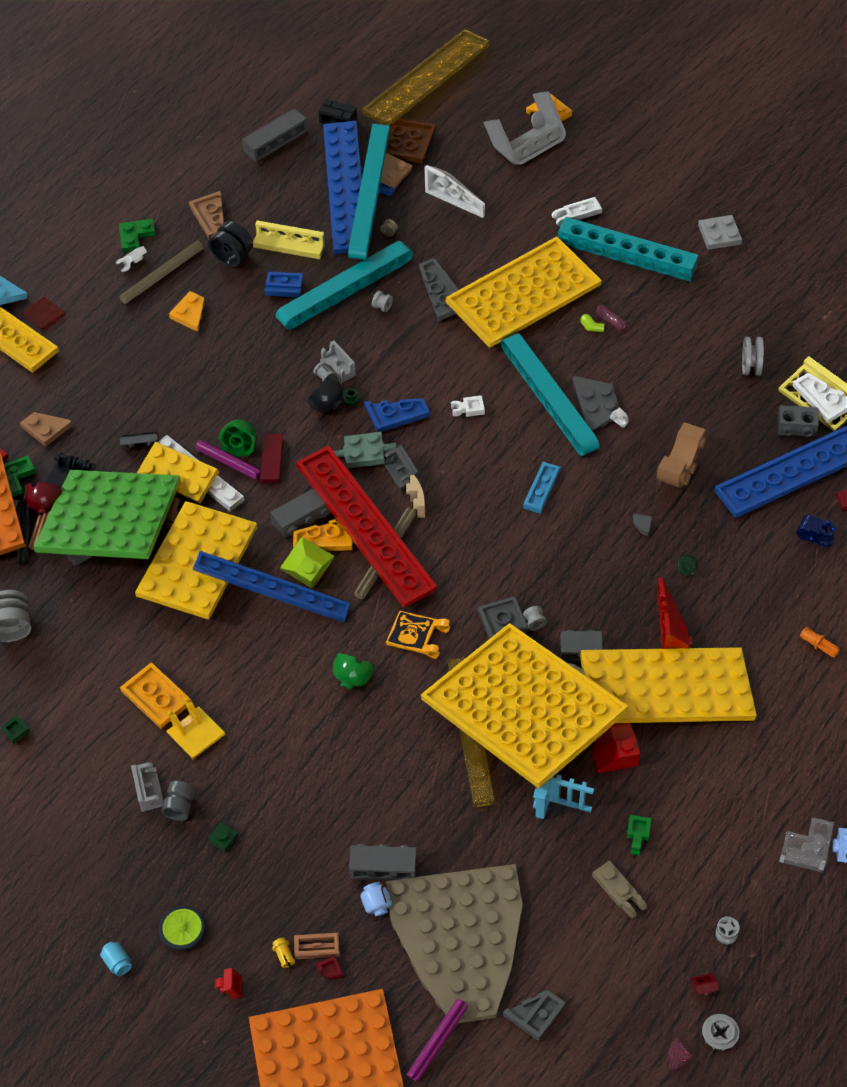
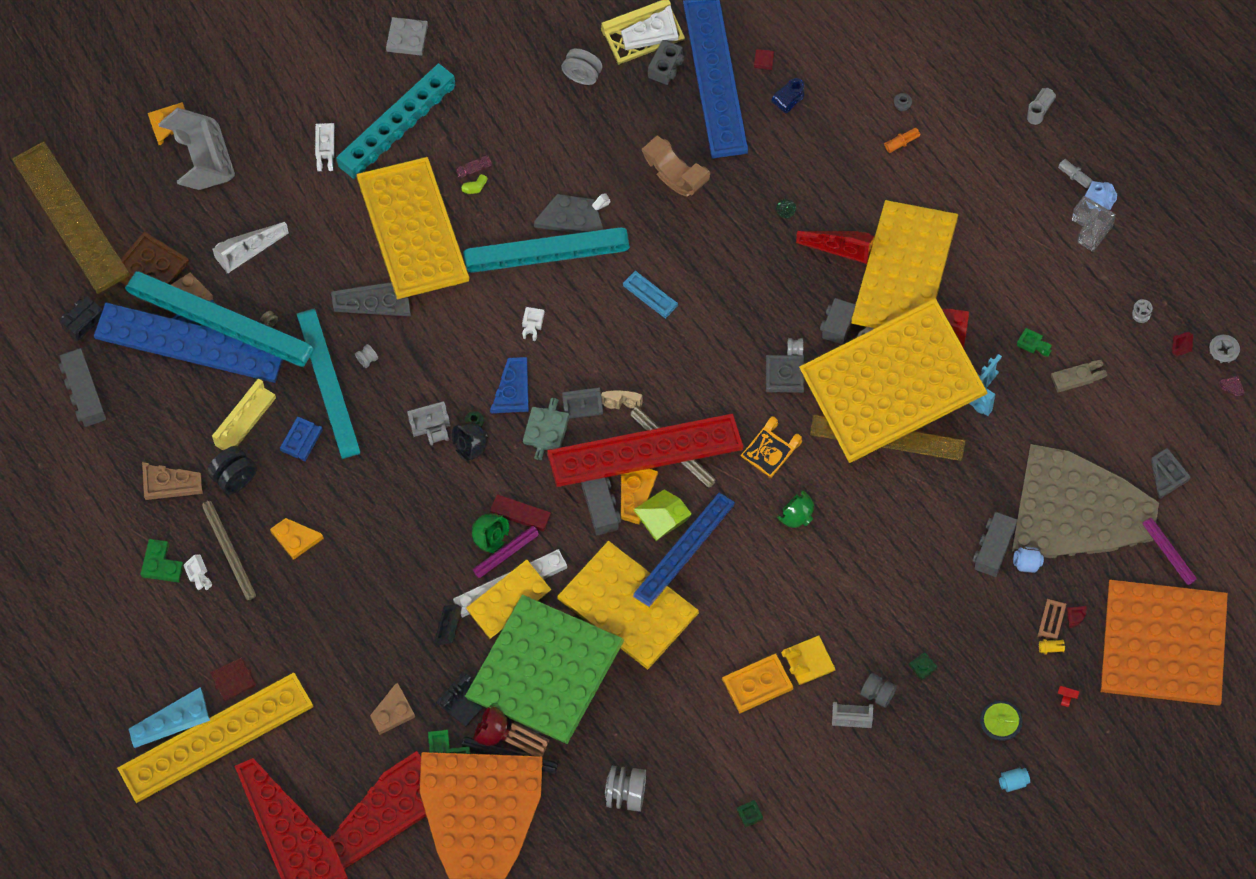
camera: 70 degrees left, 10 degrees up
(642, 523) = (724, 227): dark grey tile -> none

